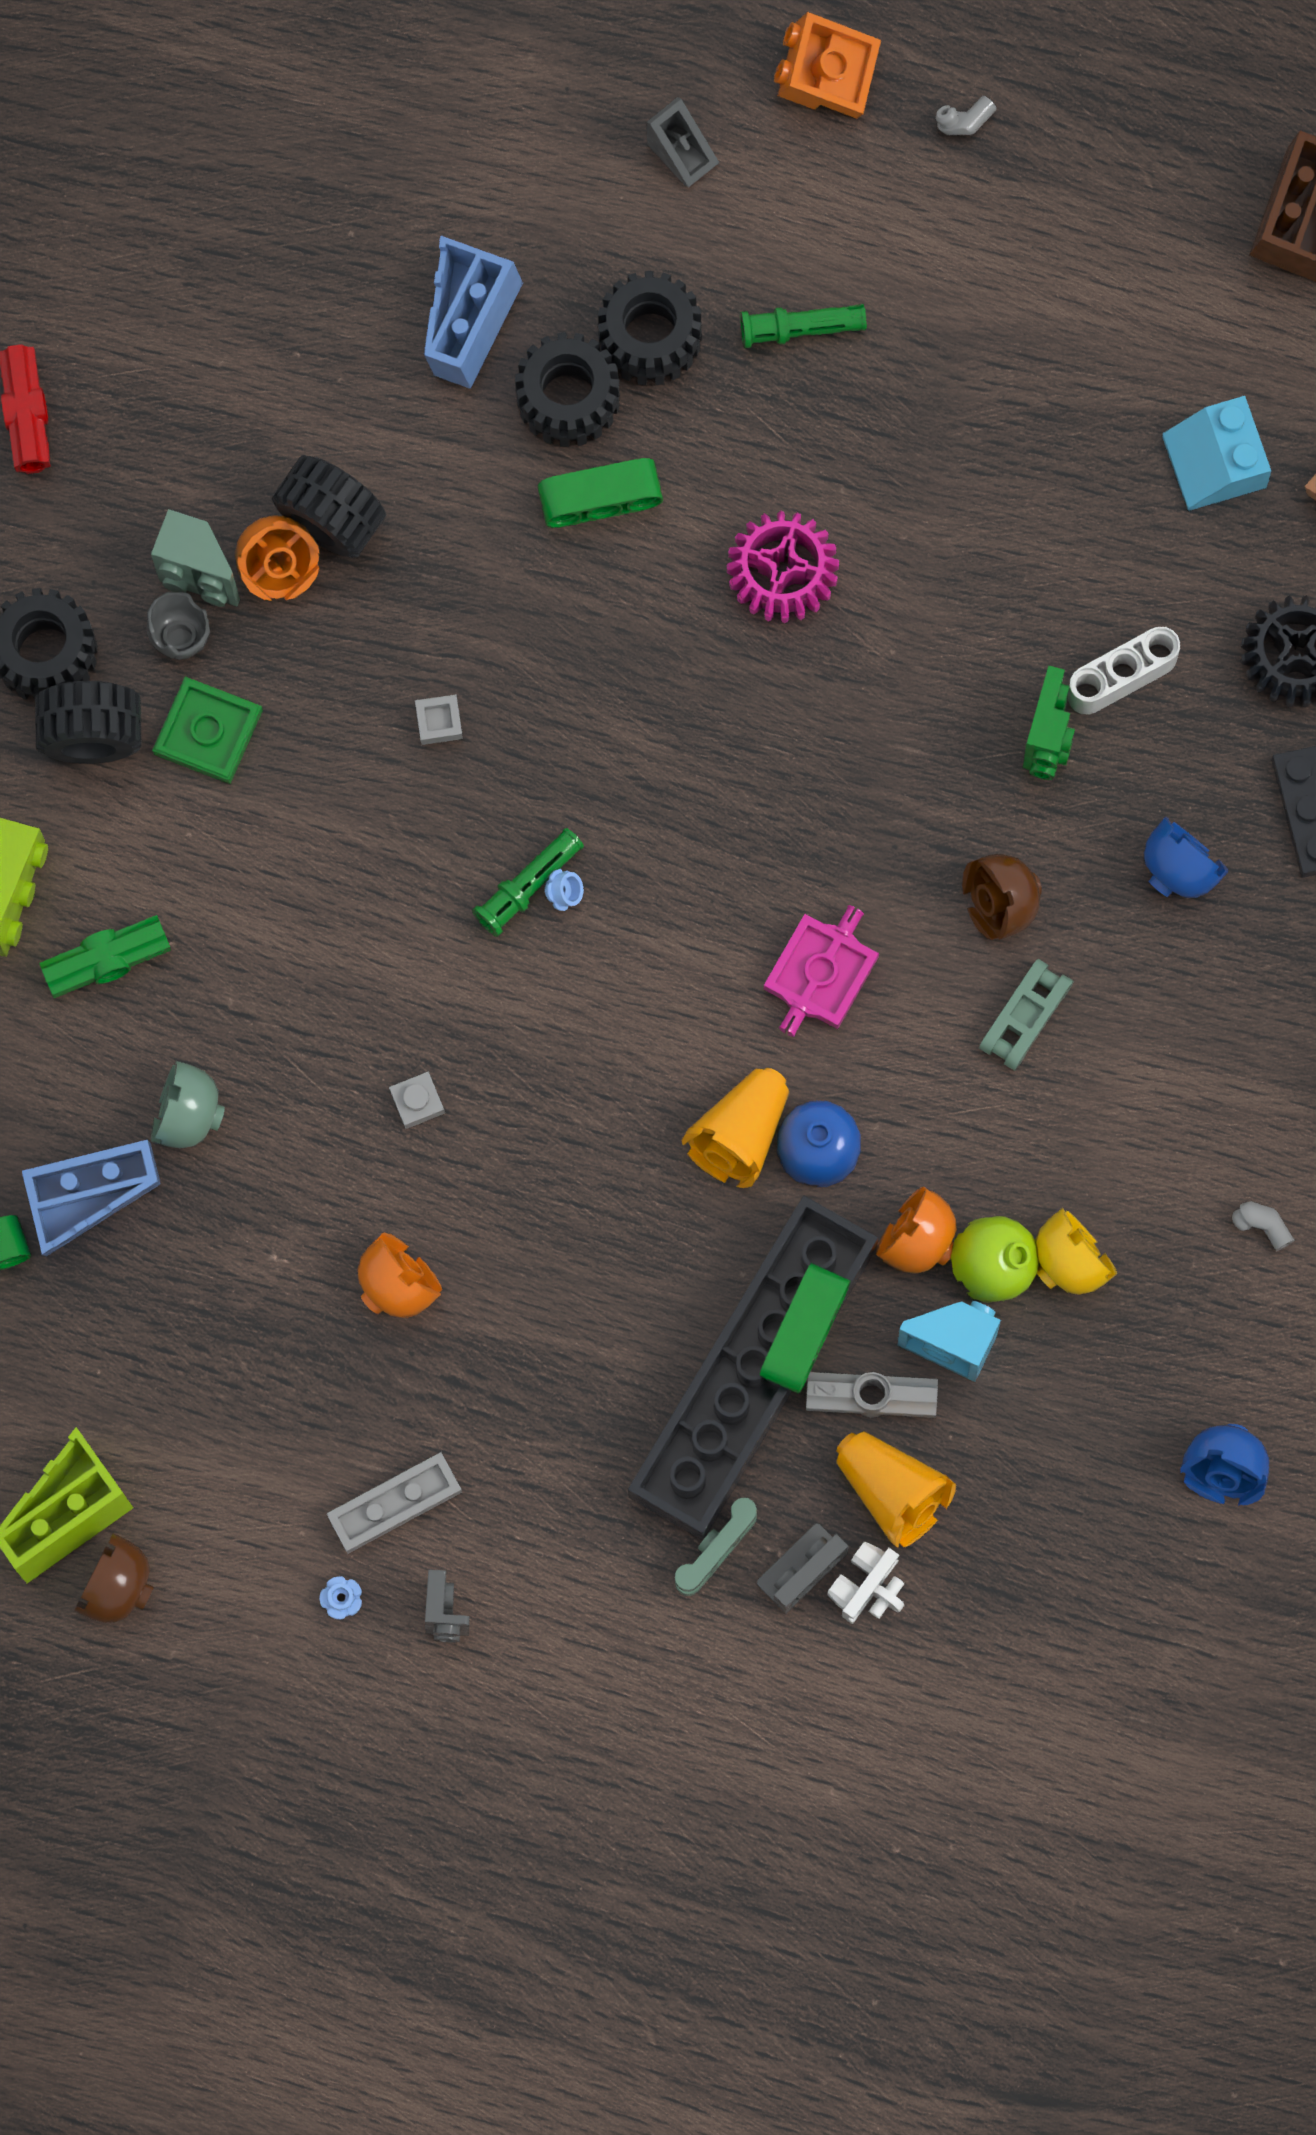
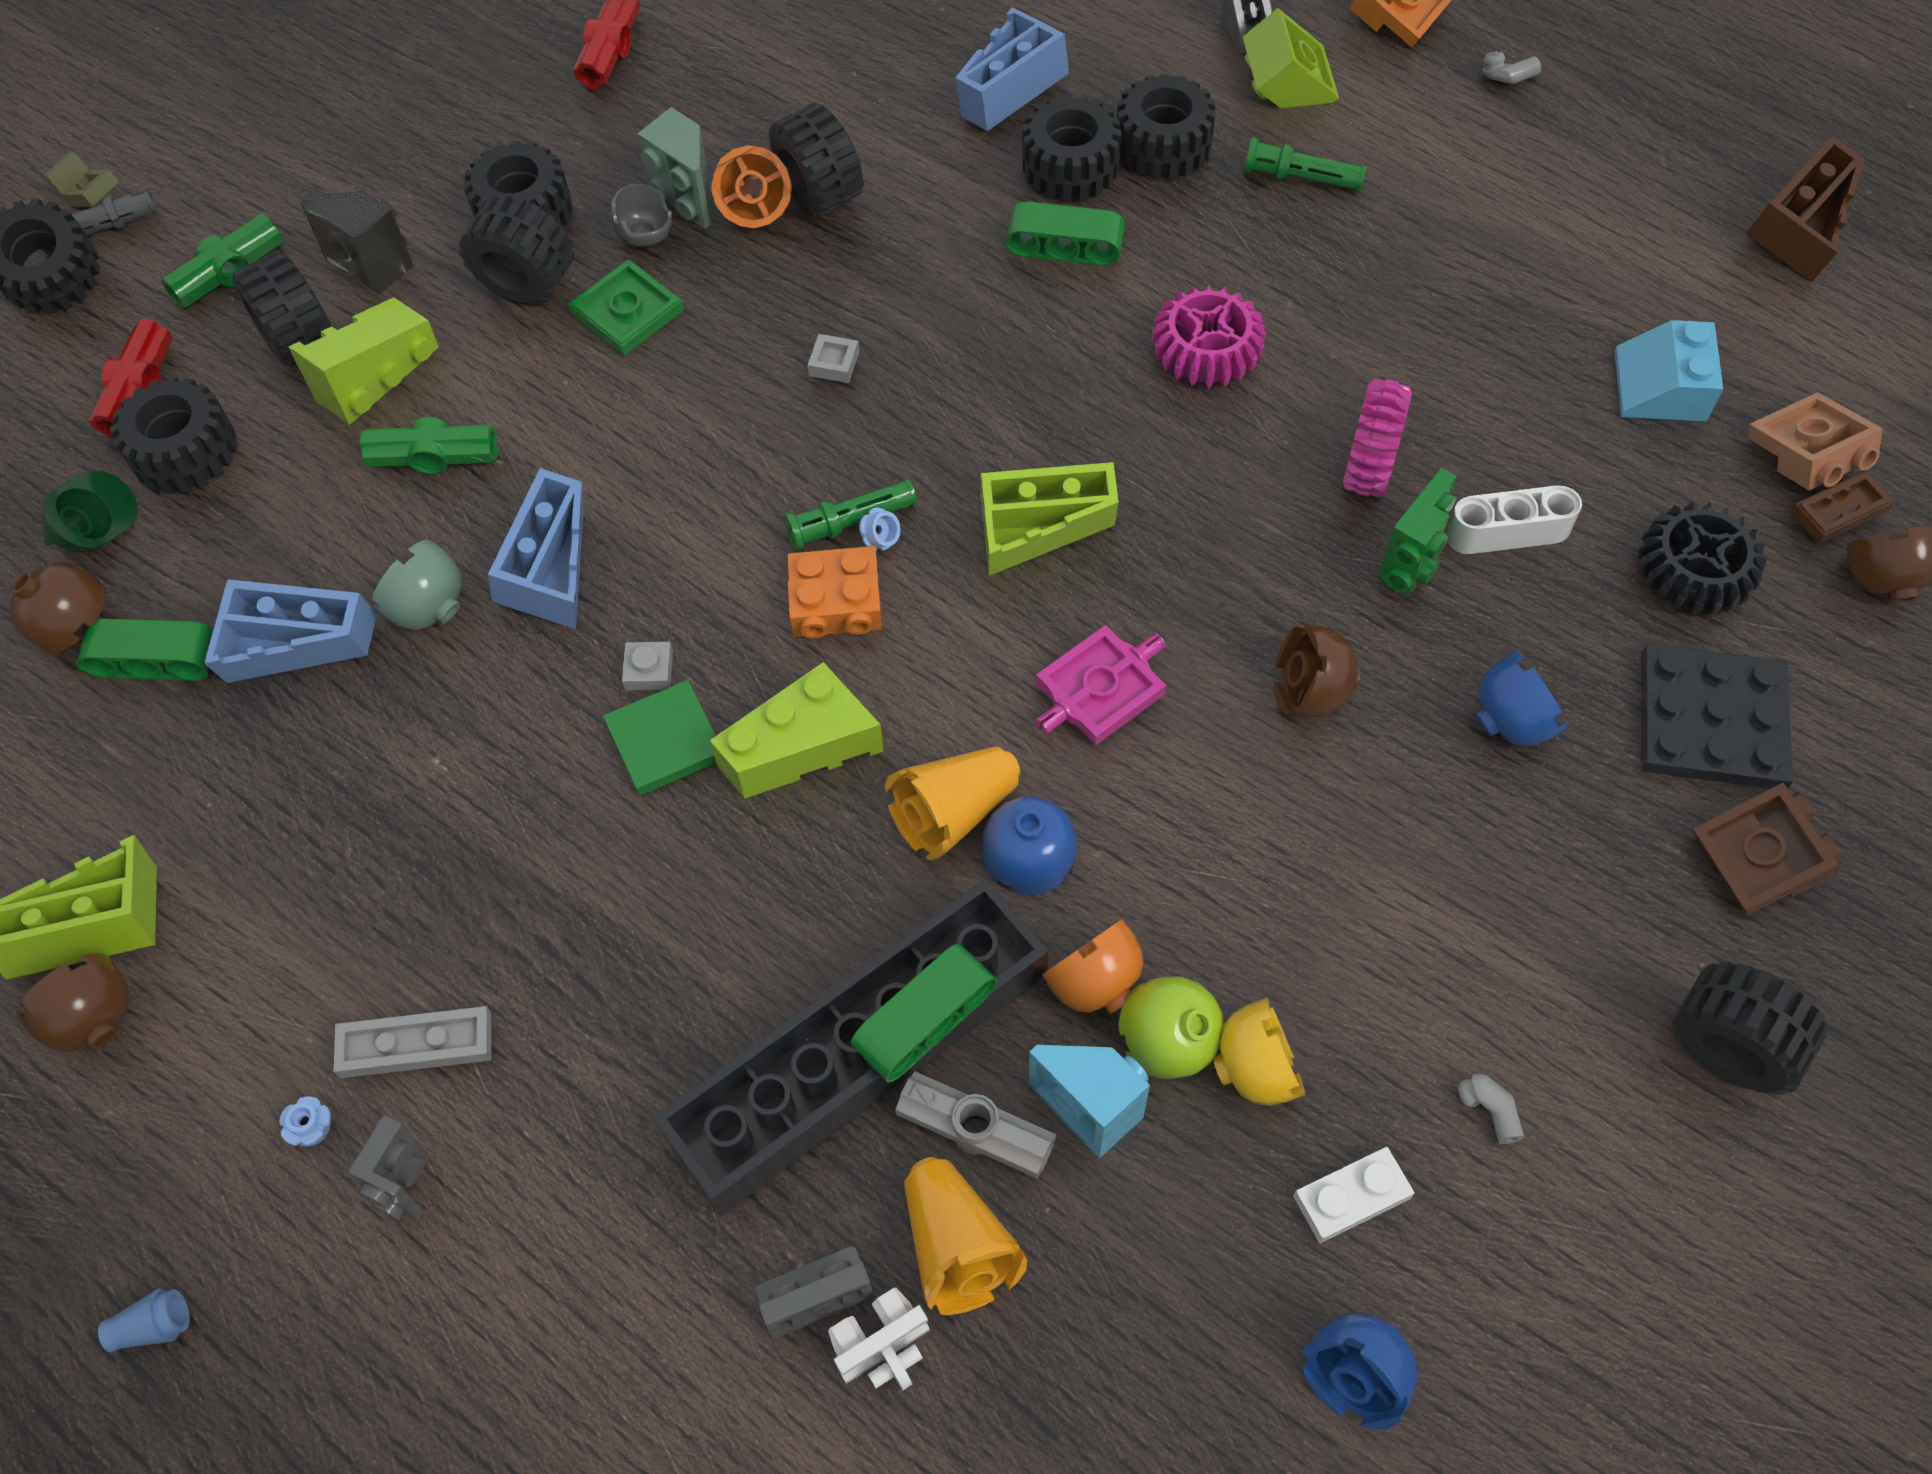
camera: 20 degrees right, 15 degrees down
(278, 1033) = (542, 552): none -> medium blue wedge
(308, 1788) = (148, 1321): none -> medium blue cone
(394, 1280) = (530, 815): orange cylinder -> none
(464, 1162) = (662, 737): none -> green tile
(549, 966) = (834, 592): none -> orange plate
(583, 1118) = (796, 732): none -> lime wedge
(704, 820) = (1044, 510): none -> lime wedge
(716, 1548) = (728, 1229): sand green plate -> none
(744, 196) = (1288, 63): none -> lime slope
(978, 636) = (1377, 438): none -> dark pink gear
(1026, 1014) = (1298, 797): sand green plate -> none
(1179, 1335) = (1353, 1194): none -> white plate

